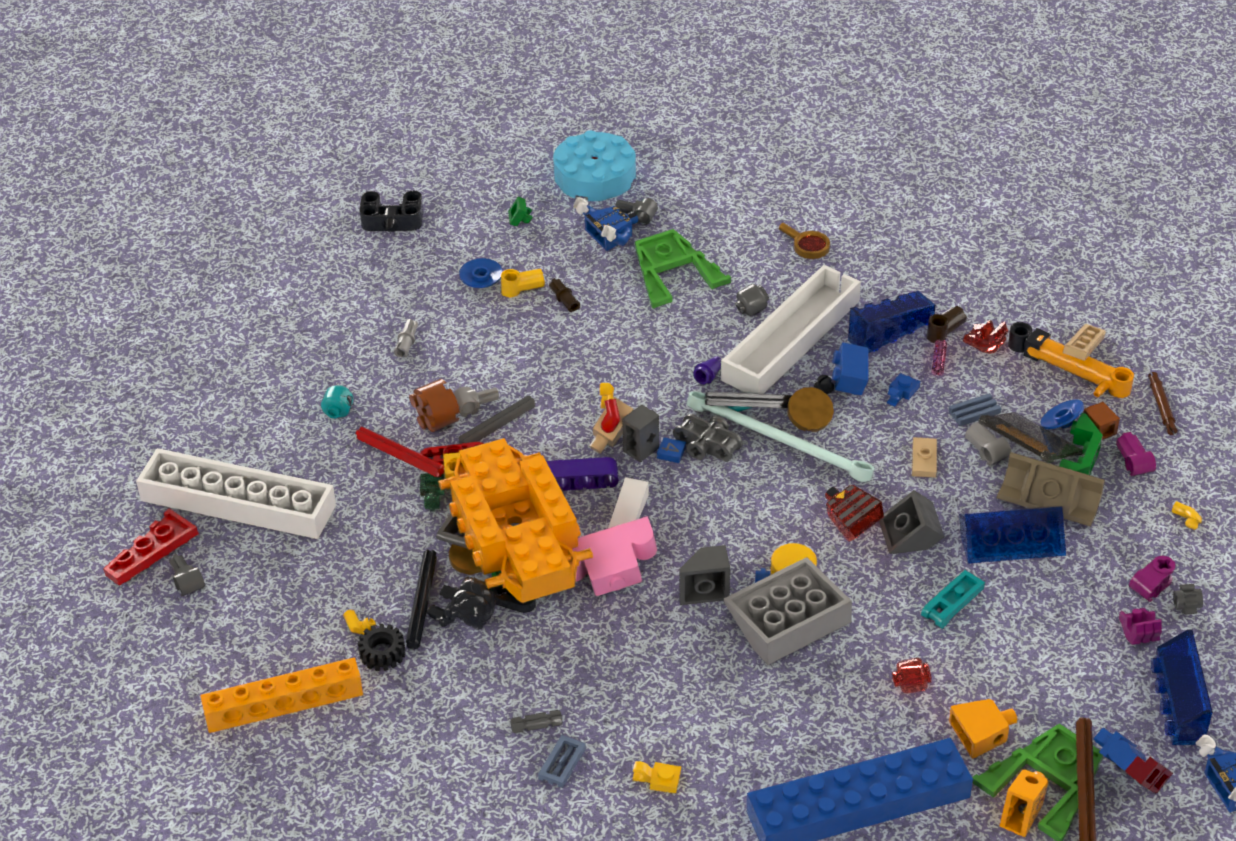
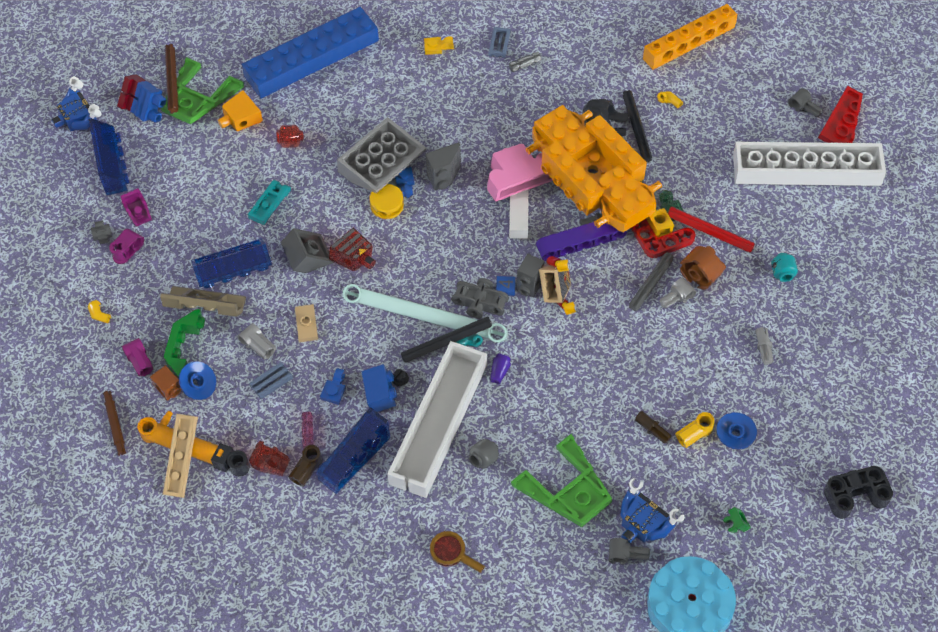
camera: 165 degrees right, 15 degrees up
(381, 636) = (645, 91): black tyre -> none
(810, 409) = (404, 340): pearl gold tile -> none
(1026, 789) = (208, 65): light orange torso -> none
(1030, 436) = (222, 345): clear smoke piece -> none

